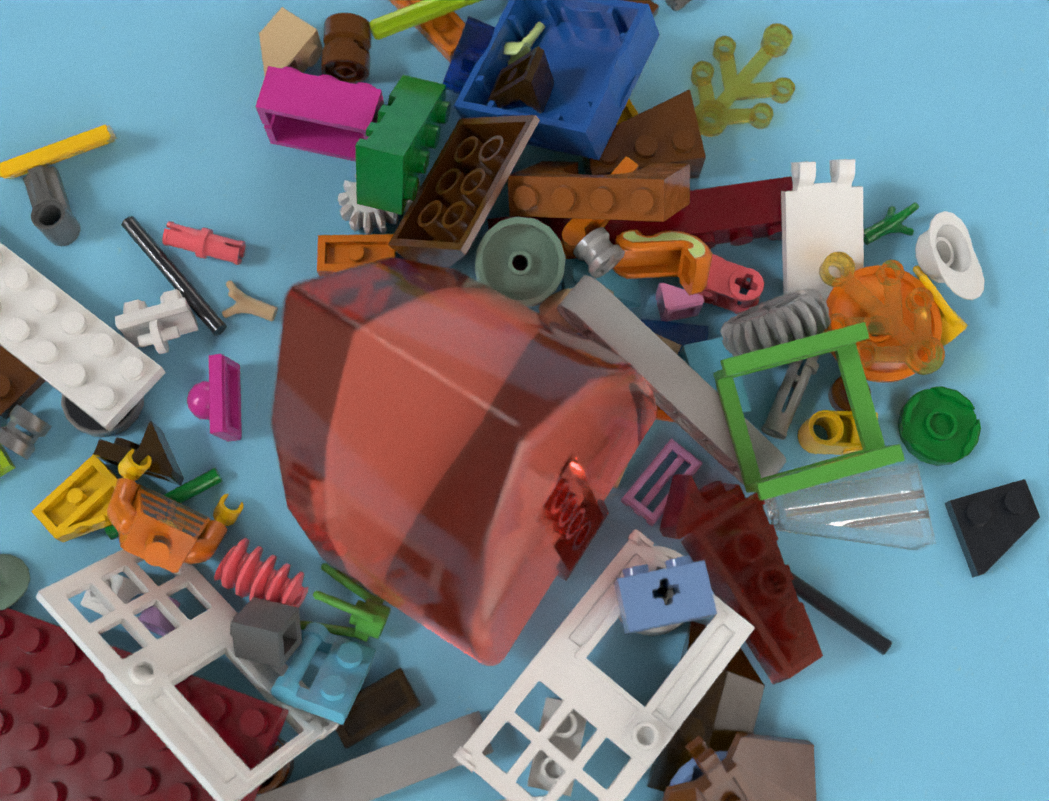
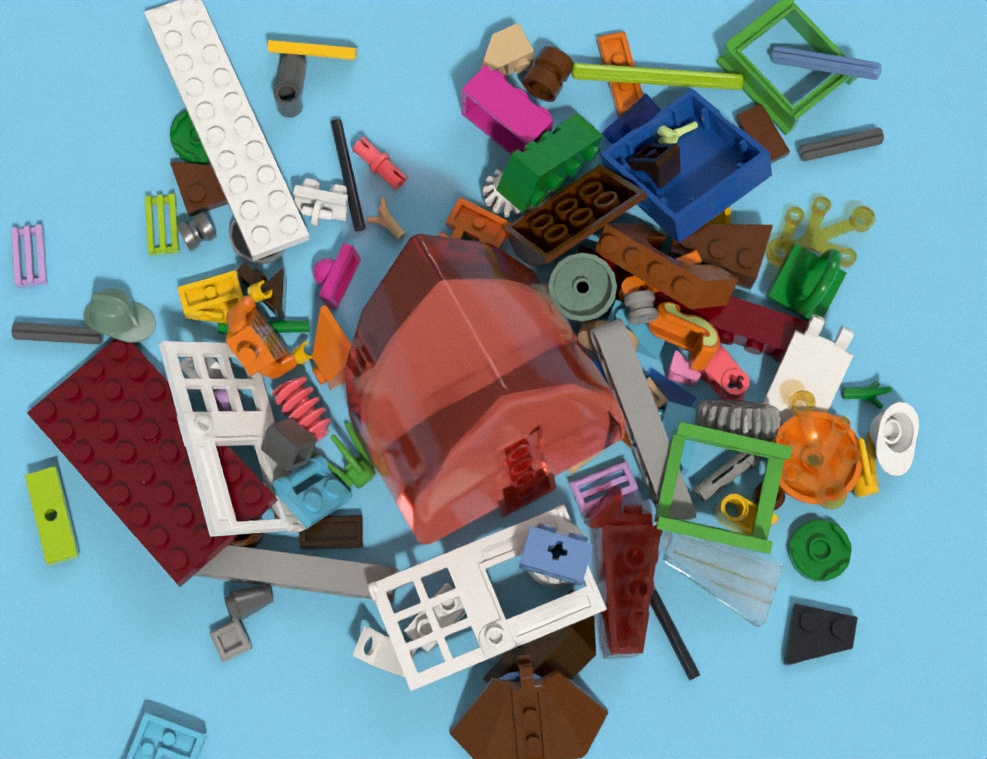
camera: 25 degrees right, 0 degrees up
(257, 490) = (330, 350): none -> orange slope
(761, 135) = (807, 281): none -> green tile

